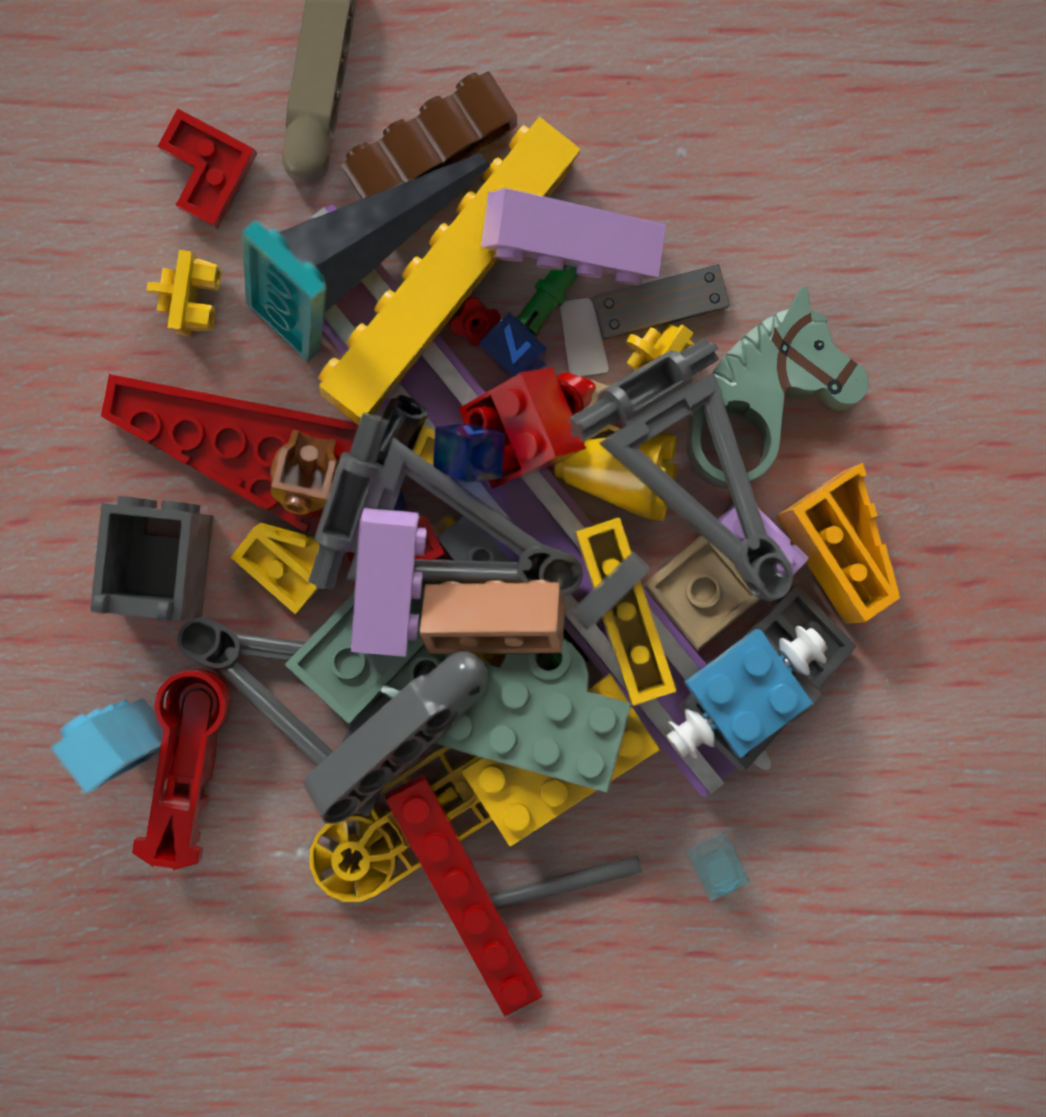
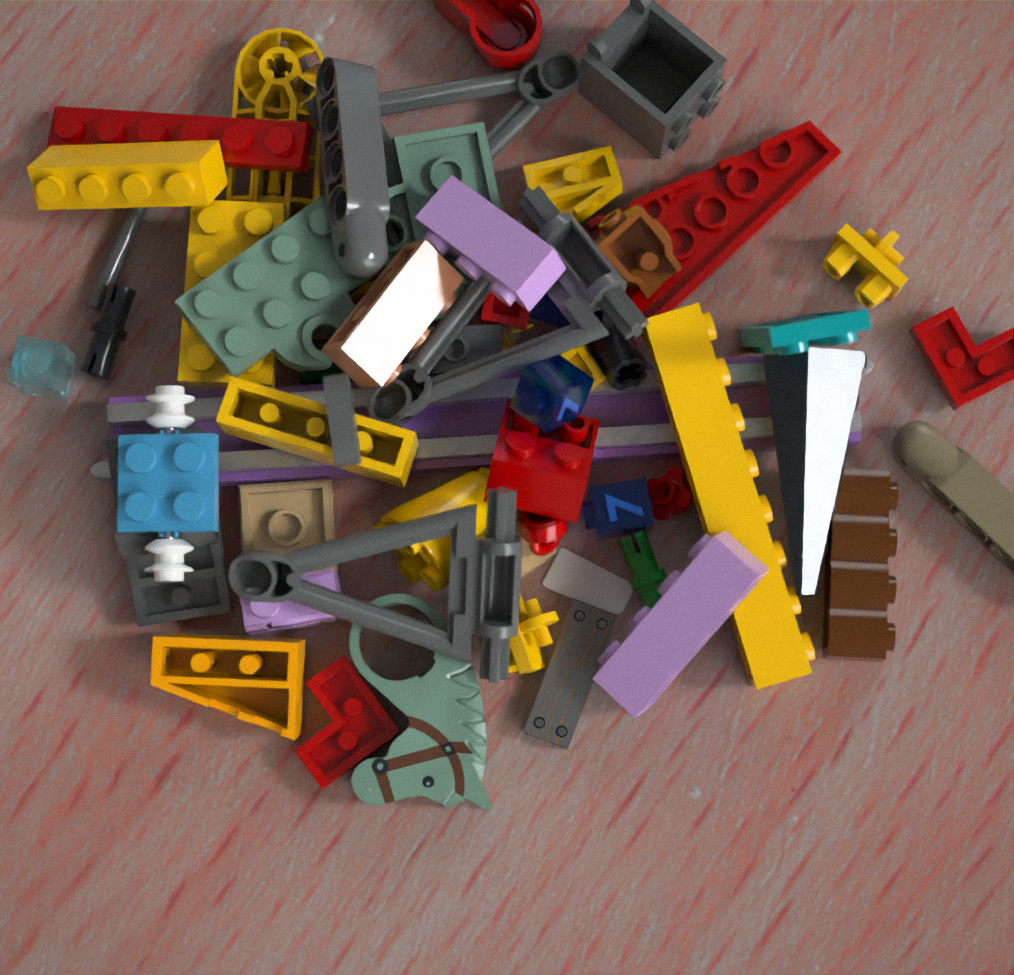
camera: 120 degrees right, 10 degrees down
(524, 911) = (128, 175): none -> yellow brick
(651, 838) = (108, 331): none -> black pin
(816, 428) = (357, 727): none -> red plate

